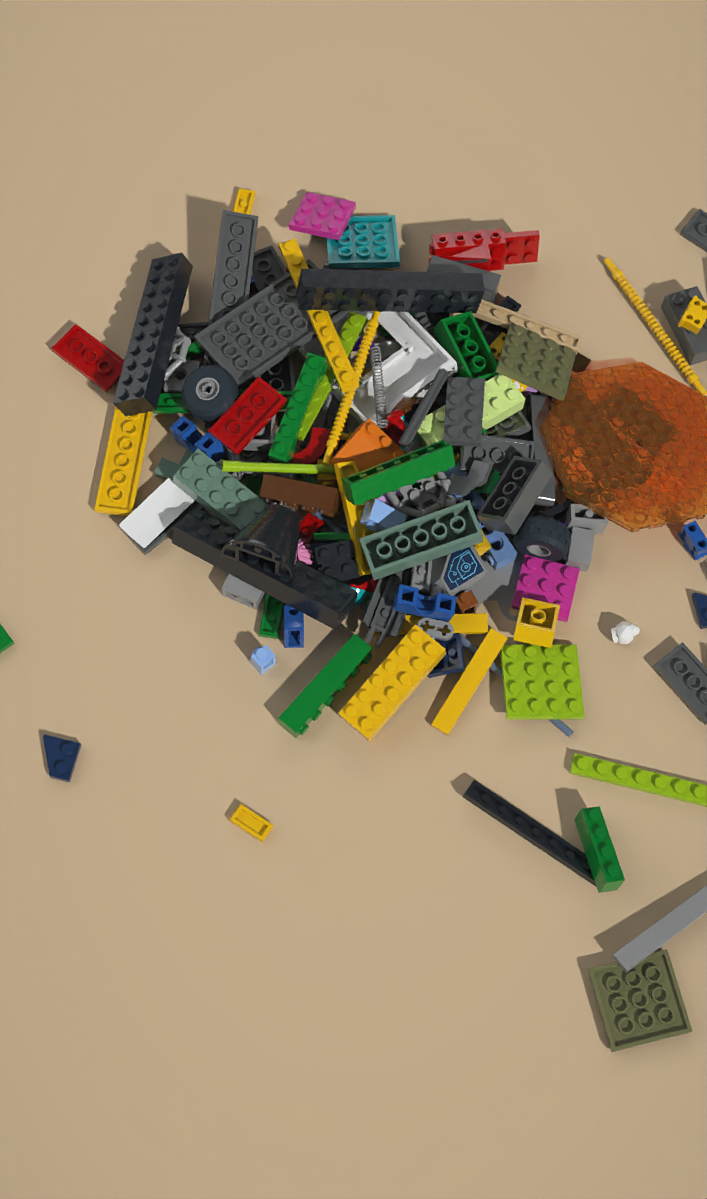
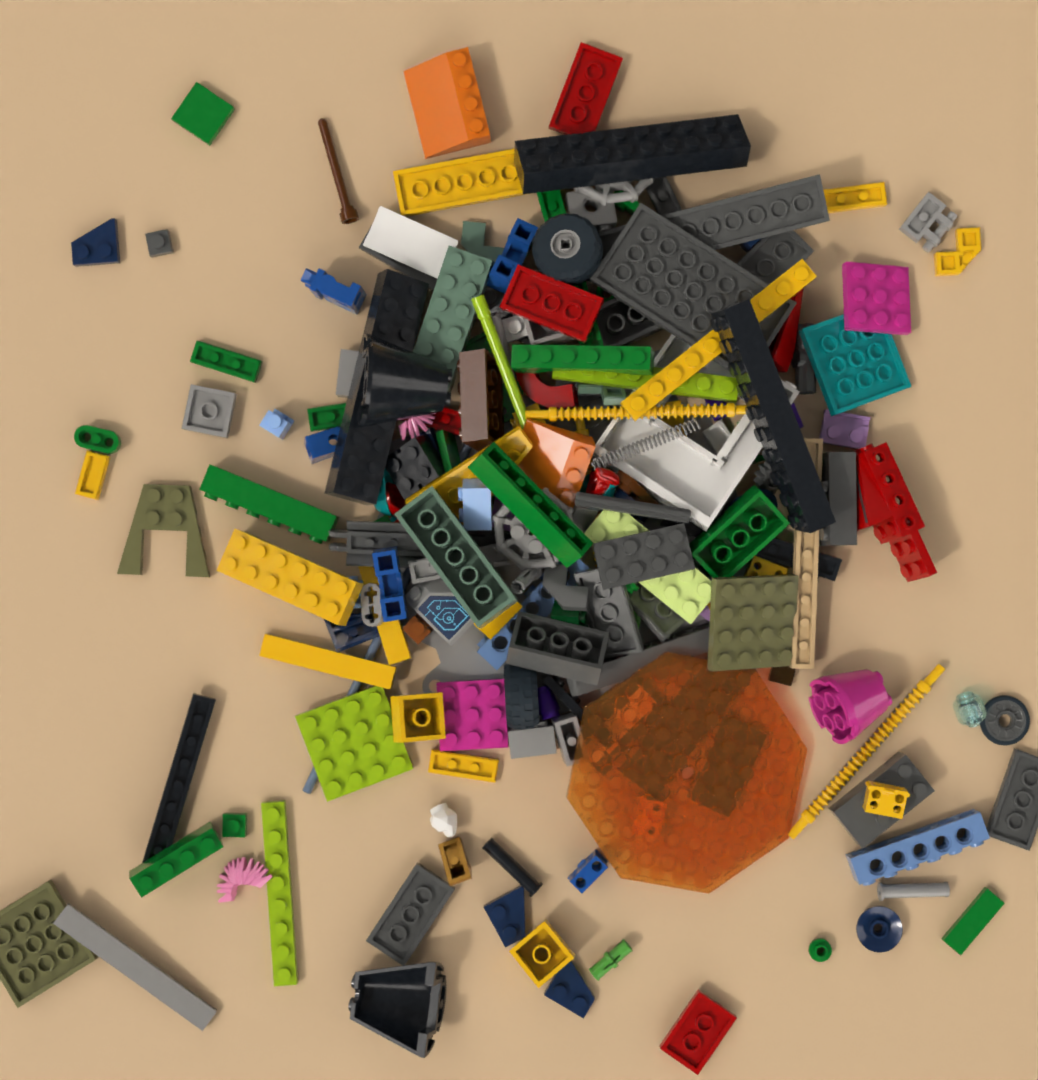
camera: 85 degrees right, 20 degrees up
(58, 454) = (447, 104): none -> orange slope
(78, 706) = (159, 243): none -> dark grey plate
(112, 553) = (348, 213): none -> reddish brown piece
(172, 578) = (326, 286): none -> blue hips
(196, 685) = (226, 361): none -> green tile
(221, 807) = (98, 439): none -> green plate
(232, 709) = (209, 411): none -> light grey plate
(252, 455) = (514, 328): none -> white plate
(275, 173) = (922, 218): none -> light grey plate
(301, 772) = (165, 509): none -> olive wing
(306, 152) = (967, 247): none -> yellow tile
(331, 403) = (609, 394): none -> sand green tile
(413, 262) = (844, 430): none -> lavender plate
(582, 799) = (234, 825): none -> green plate
(584, 608) = (463, 765): none -> yellow tile
(616, 322) = (848, 702): none -> dark pink cone
(627, 806) = (239, 874): none -> bright pink hair
(643, 250) = (969, 709): none -> clear light blue head
(653, 241) = (1018, 724): none -> dark grey wheel
(659, 633) = (455, 861): none -> pearl gold slope
(676, 595) = (512, 867): none -> black pin

